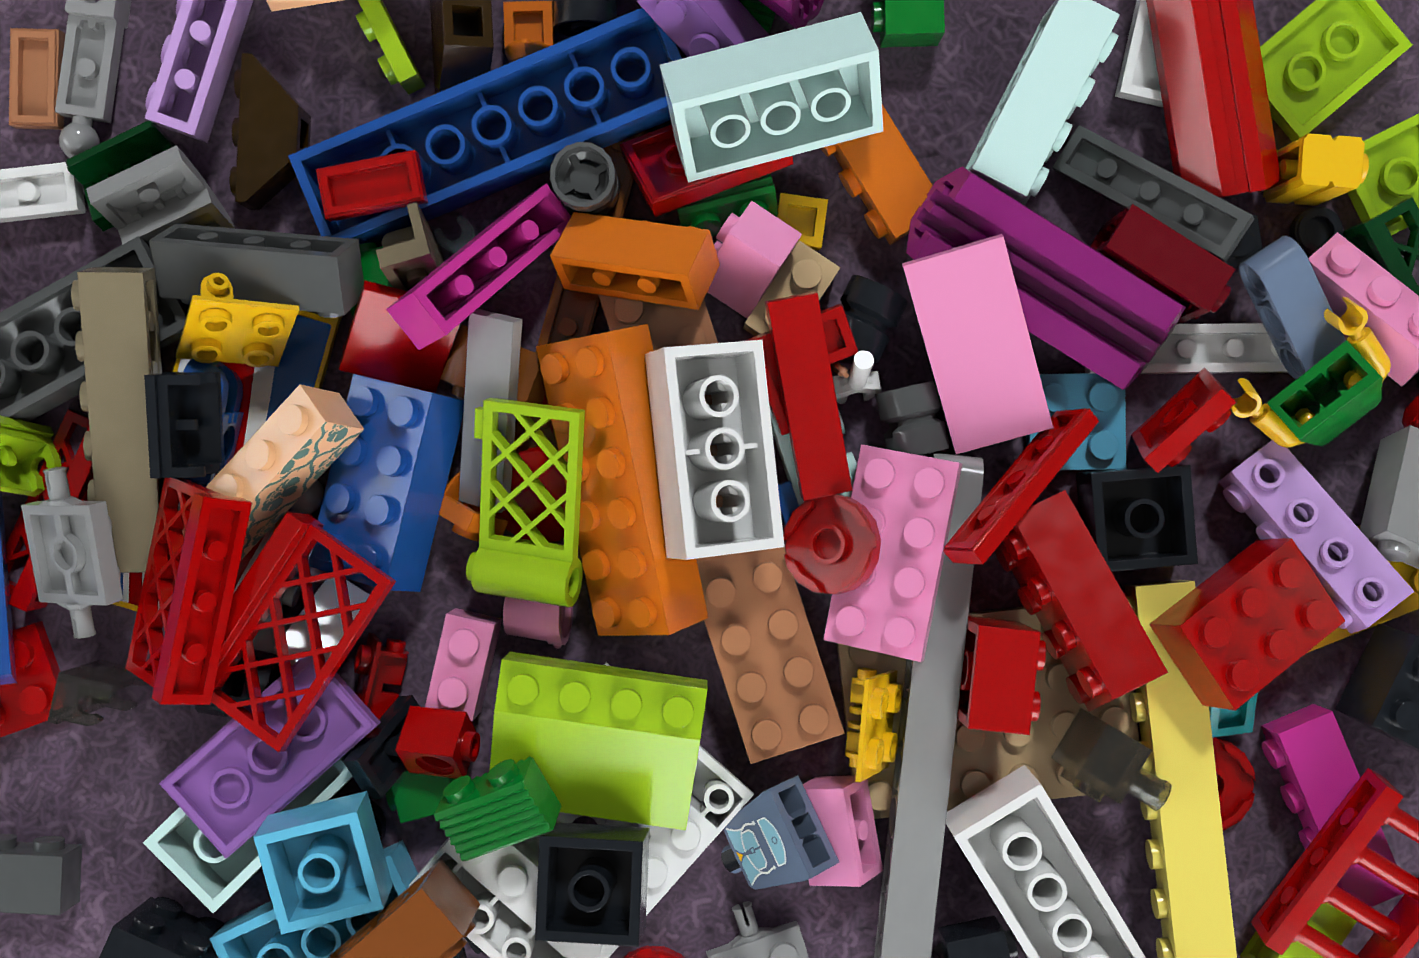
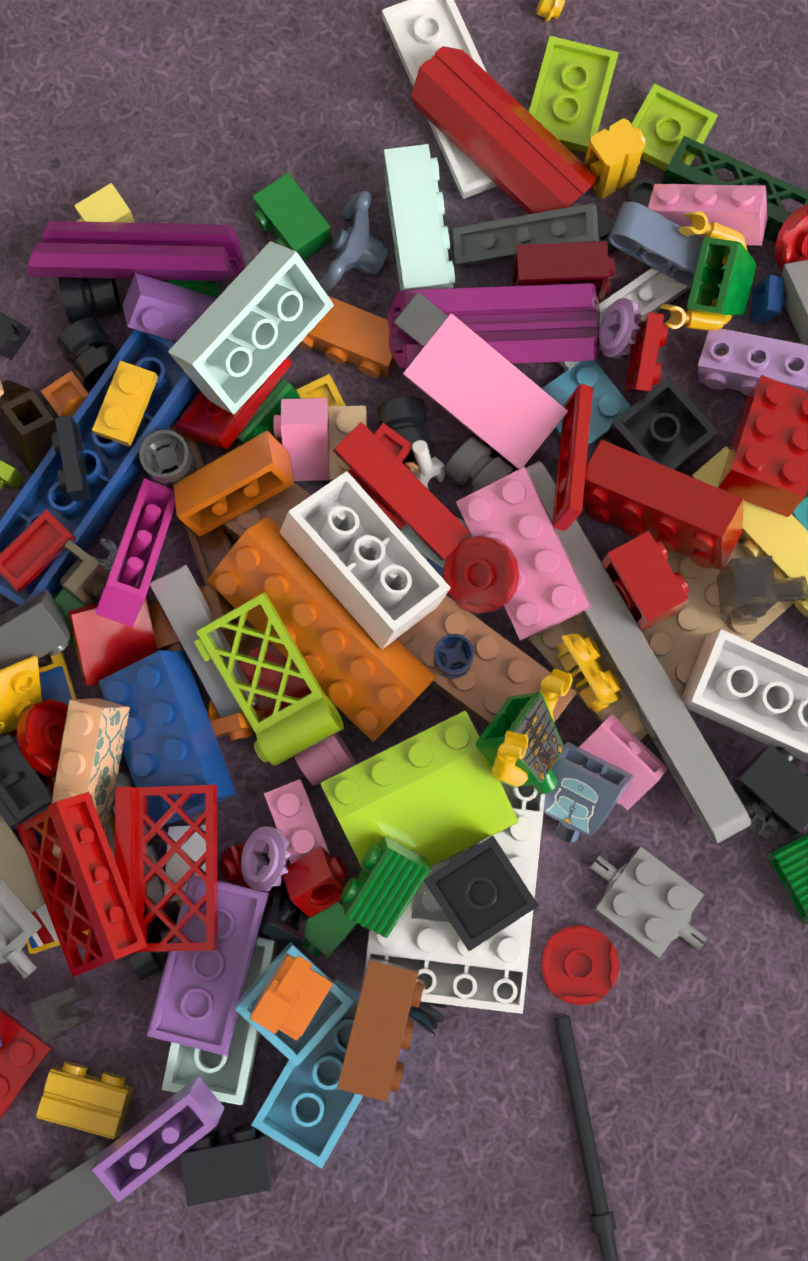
camera: 35 degrees left, 10 degrees down
(68, 790) = (85, 1100): none -> yellow brick
(102, 896) = (158, 1139): none -> medium lavender brick
(254, 393) = (41, 735): none -> red tile
(315, 868) = (291, 997): none -> orange piece
(389, 679) = (253, 864): none -> lavender gear
(484, 95) = (68, 443): none -> black plate
(578, 87) = (125, 403): none -> yellow plate
(742, 621) = (454, 649): none -> dark blue wheel
(752, 756) = (523, 736): none -> torso
(956, 70) = (356, 245): none -> sand blue piece
(964, 219) = (420, 319): none -> dark grey tile
(1186, 356) = (624, 316): none -> lavender gear
(1361, 446) = (767, 299): none -> blue plate

